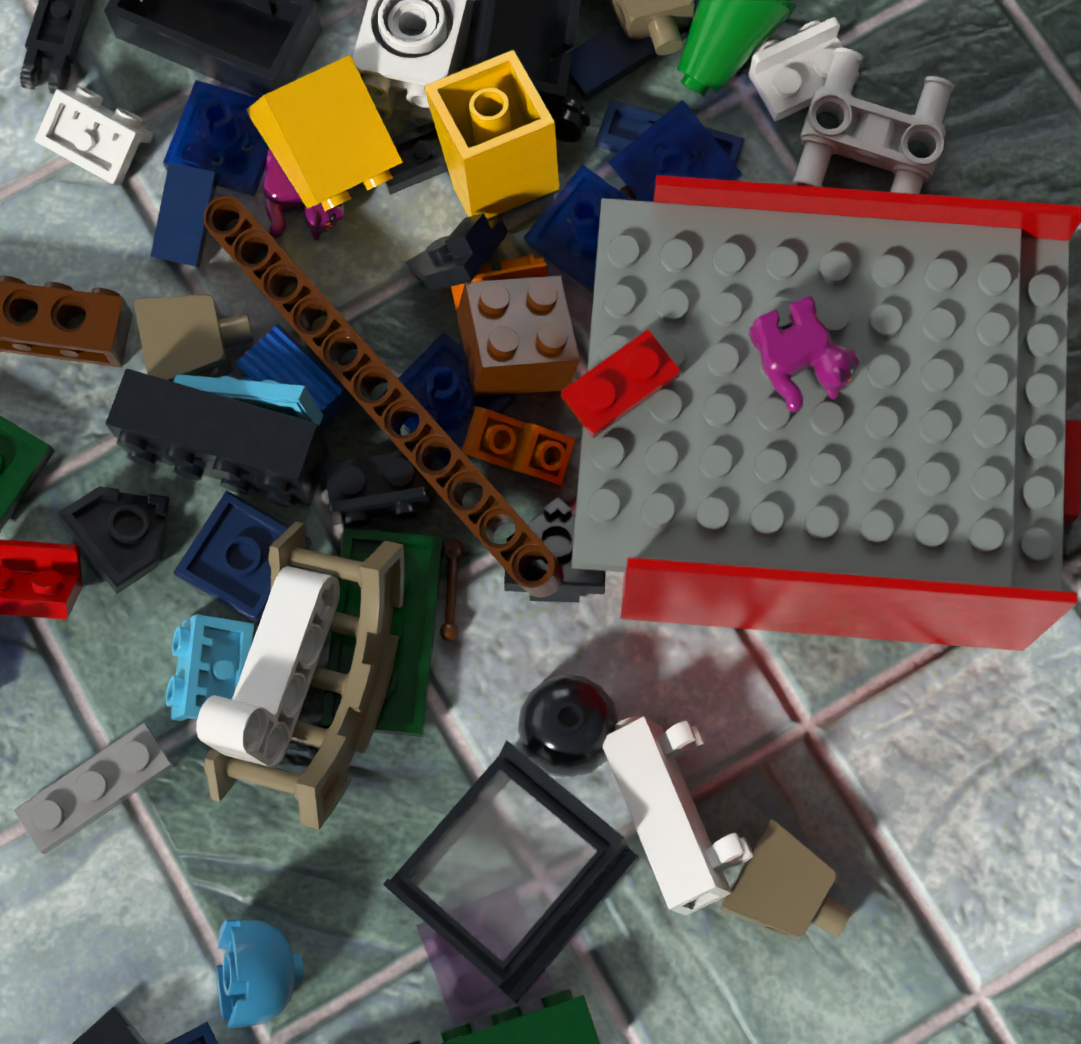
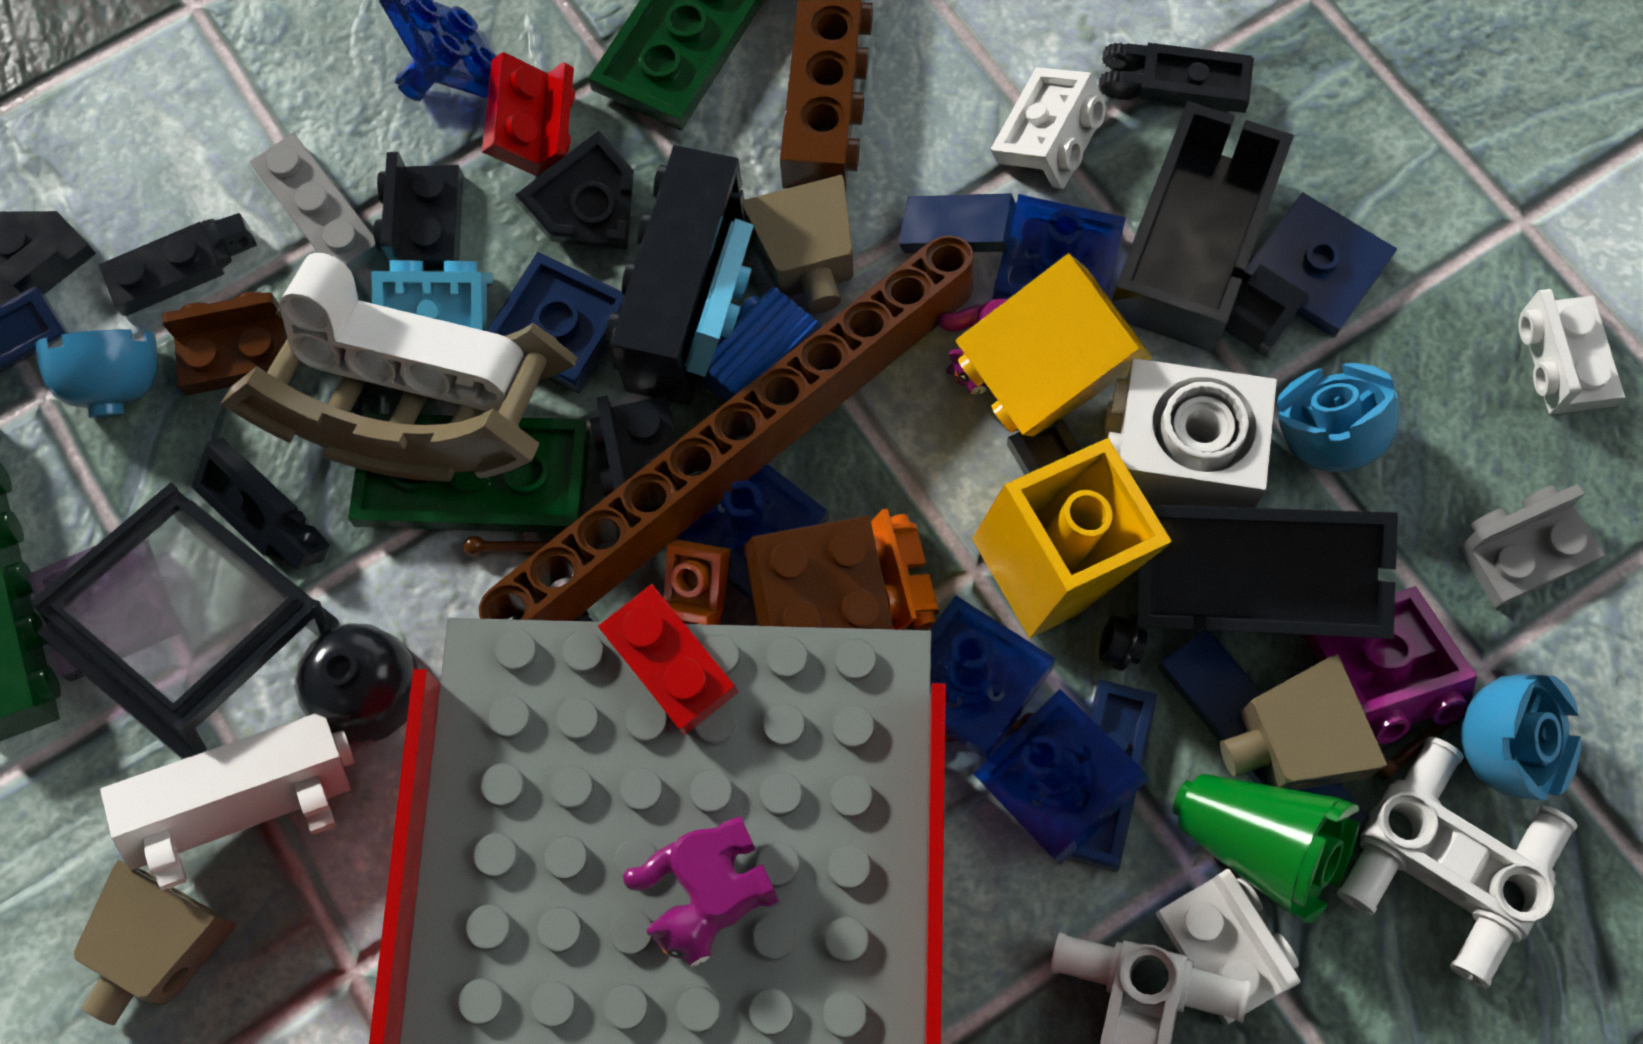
camera: 90 degrees right, 5 degrees down
(116, 684) = (419, 212): none -> black bracket
(140, 923) = (175, 263): none -> black hinge
(234, 858) = (224, 340): none -> reddish brown bracket
(401, 821) = (256, 507): none -> black hinge
(458, 256) = (919, 515): black plate -> none

